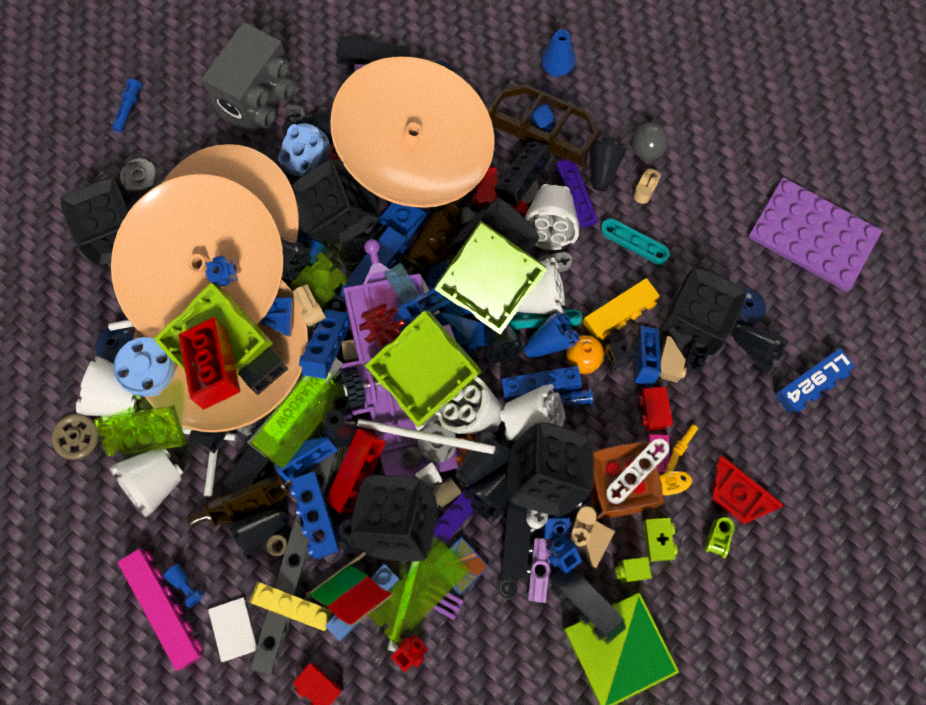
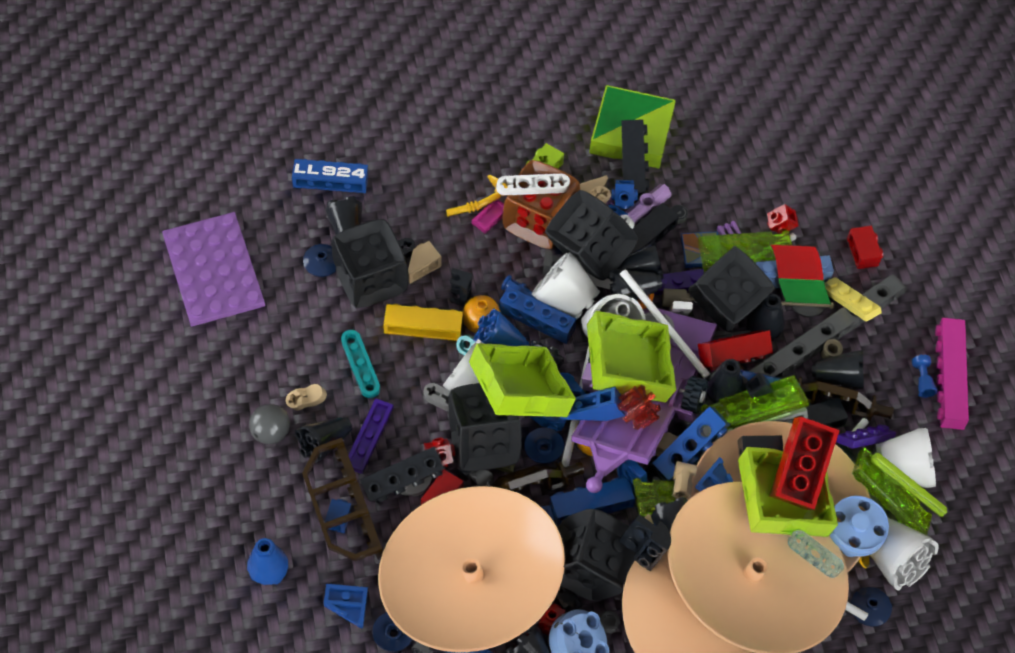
camera: 145 degrees left, 15 degrees down
(84, 448) = (966, 545): dark tan plate -> none
(140, 449) = (908, 484): none -> lime axle
(169, 315) = (800, 549): none -> clear light blue beam
(193, 469) = (865, 437): none -> dark purple plate
(221, 271) = (743, 529): blue brick -> none
(233, 629) = (904, 327): white piece -> none
(289, 212) = (647, 541): none -> black brick
(305, 435) = (758, 386): none -> black slope
(311, 483) = (780, 364): blue brick -> none
(401, 284) = (595, 433): clear light blue tile -> none
(411, 456) = (684, 328): dark grey tile -> none
(484, 73) = (347, 602): none -> blue wing
(553, 217) = (412, 422): white cone -> none
(633, 570) = (582, 156): lime brick -> none
(647, 358) = (434, 277): blue slope -> none
(655, 408) = (465, 240): red brick -> none
(719, 538) = (499, 139): lime piece -> none
(740, 494) = (458, 151): red wing -> none

